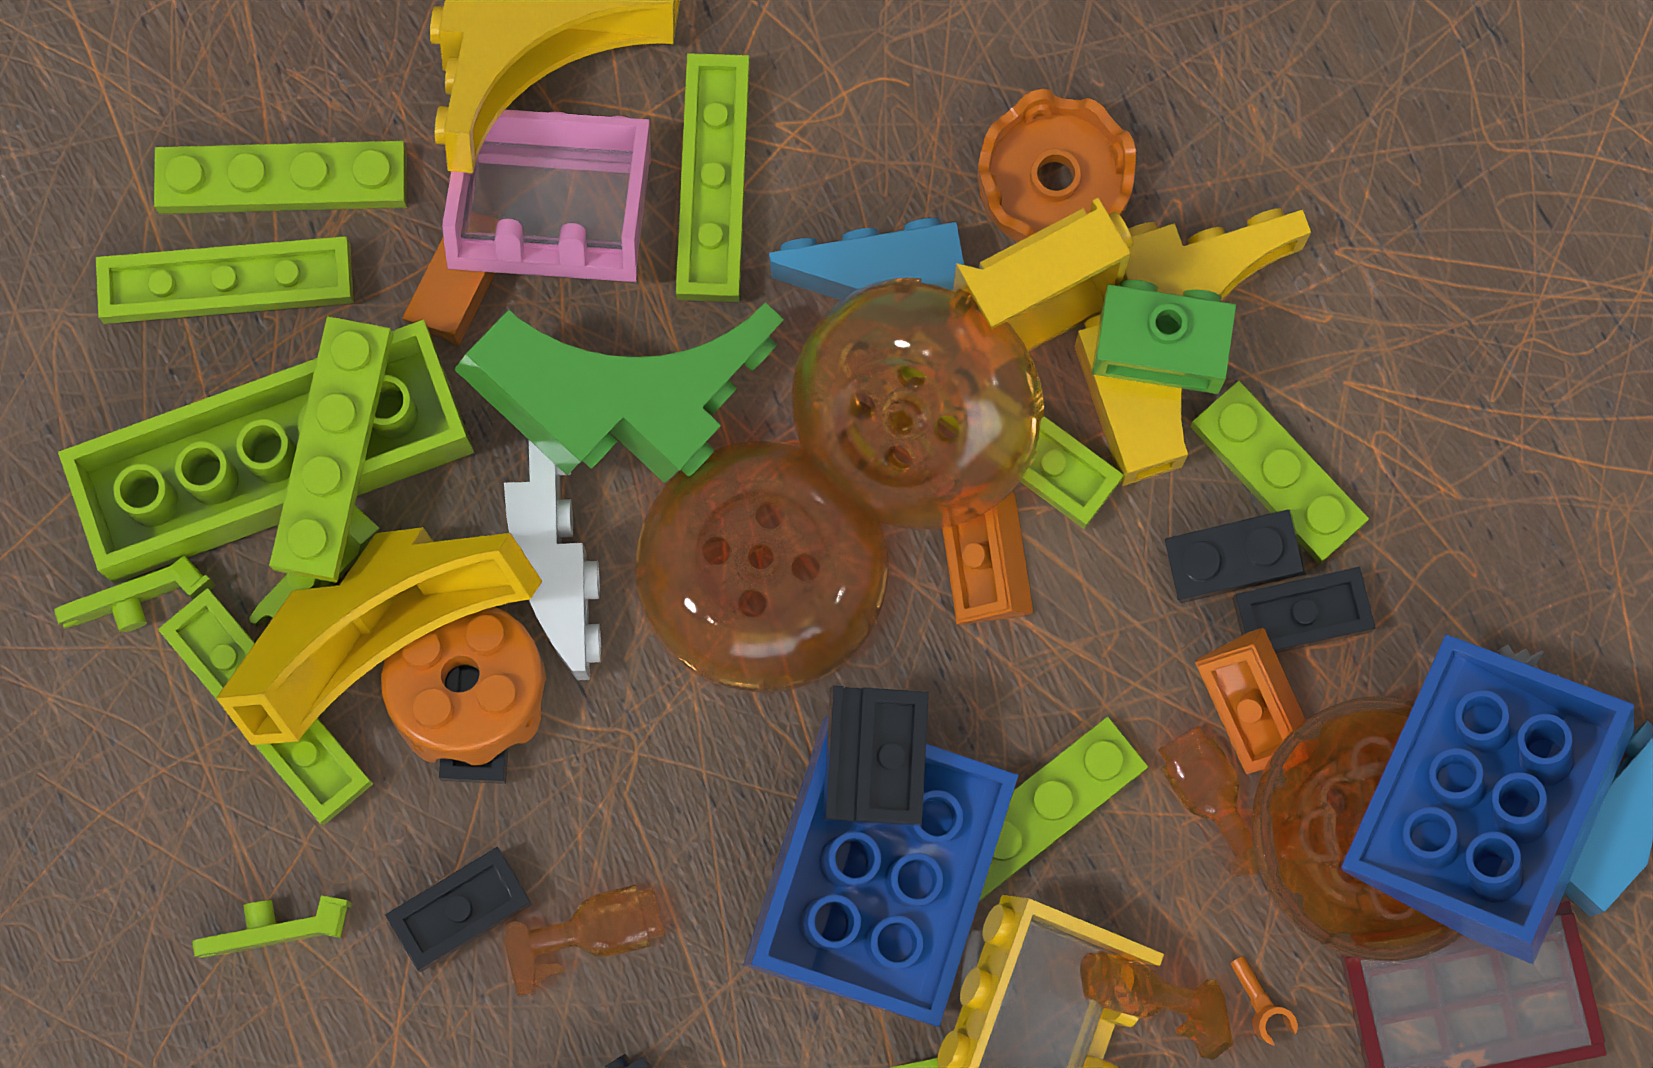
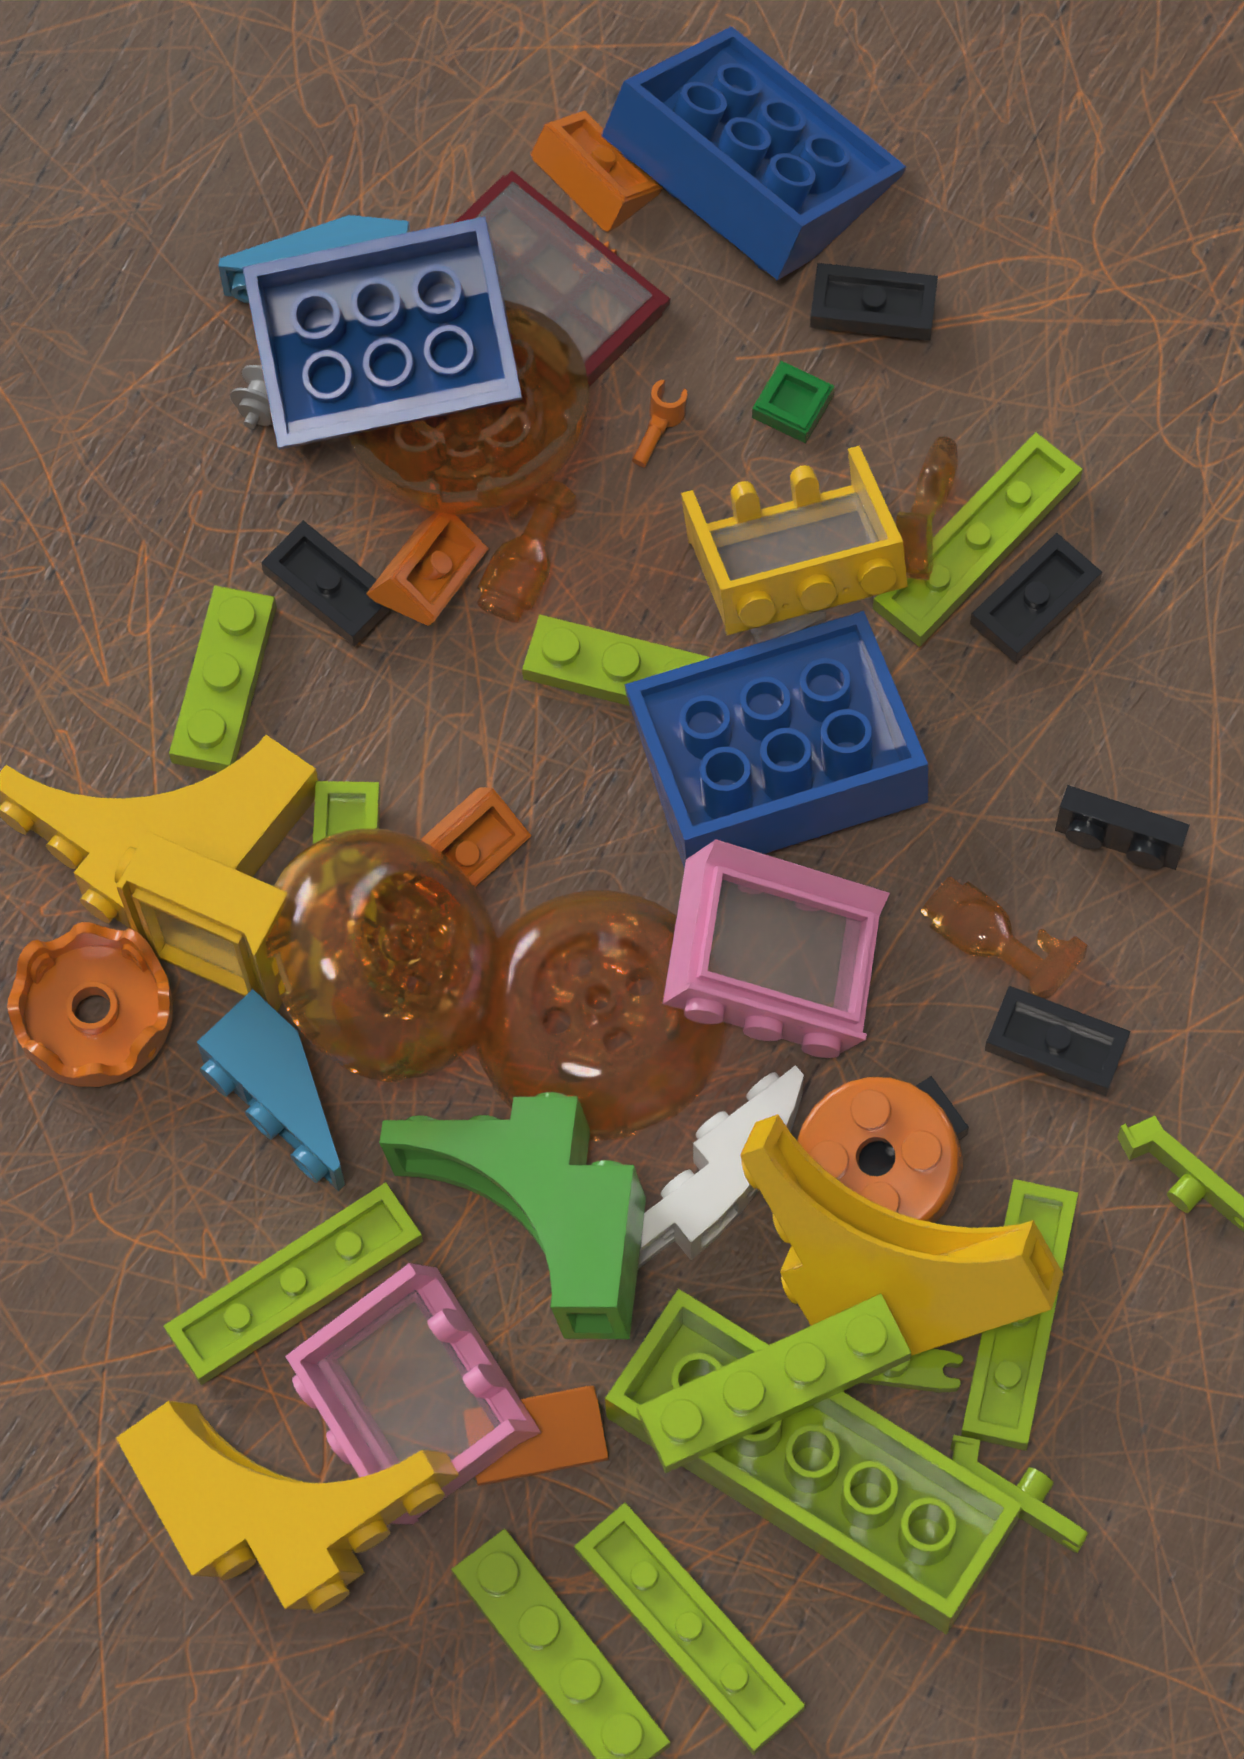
camera: 125 degrees left, 10 degrees down
(690, 721) = (773, 949): none -> bright pink window
(875, 755) = (696, 777): black plate -> none
(1140, 992) = (725, 493): clear orange piece -> none
(1164, 337) = (184, 794): bright green brick -> none
(1235, 556) = (320, 661): black plate -> none

